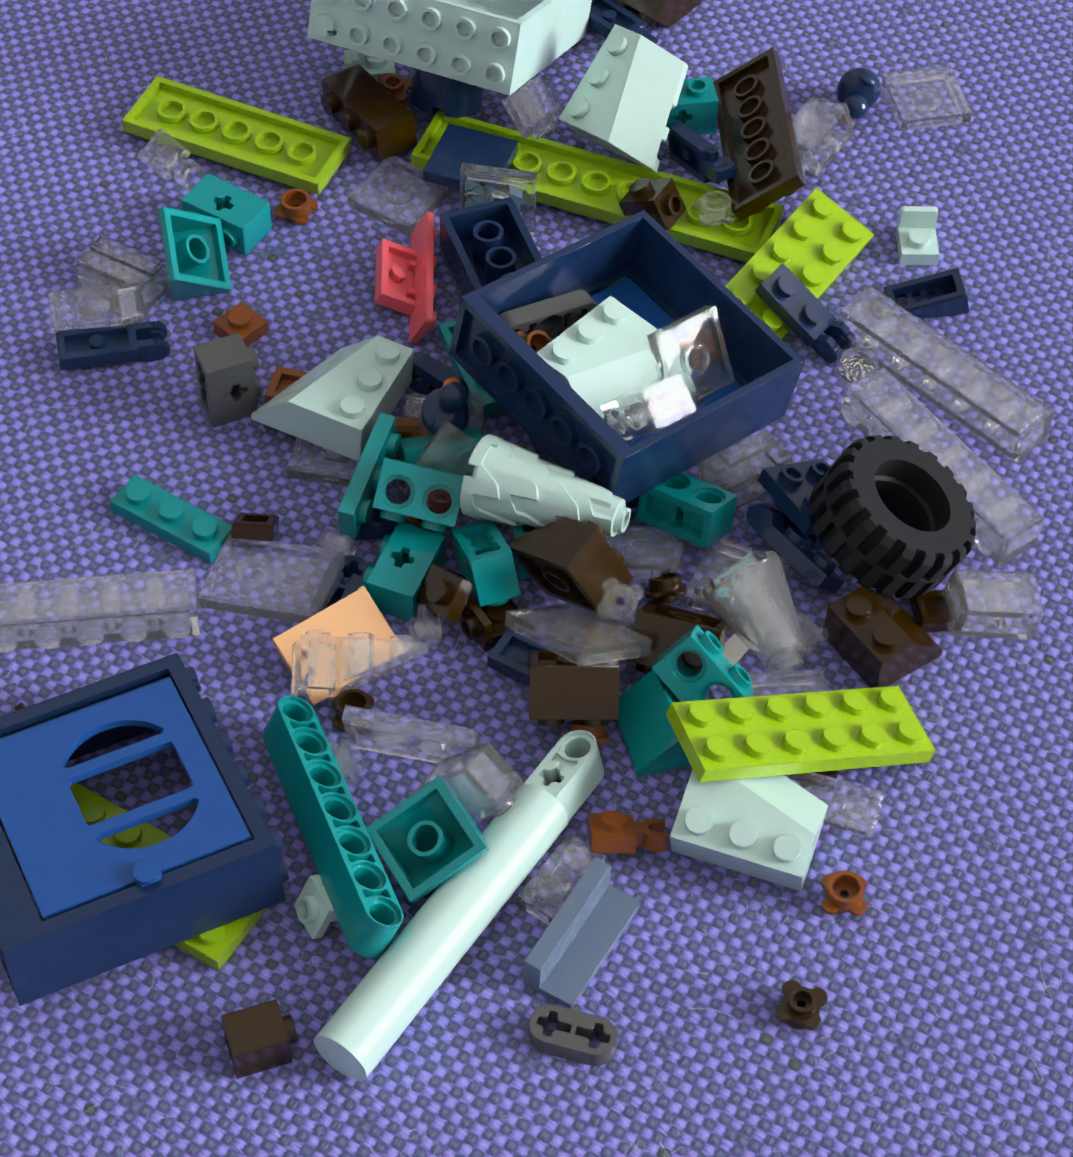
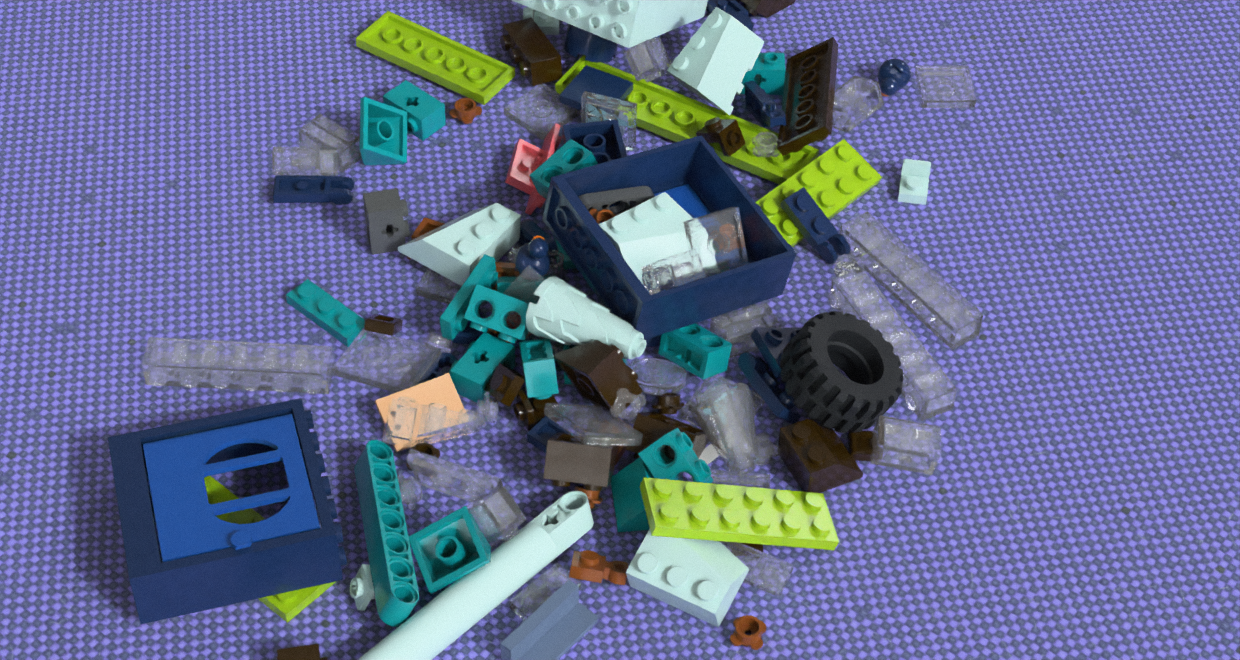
camera: 10 degrees right, 5 degrees down
(169, 159) = (383, 68): clear plate -> none
(242, 320) = (408, 186): dark orange plate -> none
(396, 86) = (556, 37): dark orange plate -> none
(460, 271) = (565, 160): none -> teal brick
(935, 284) = (926, 219): dark blue slope -> none

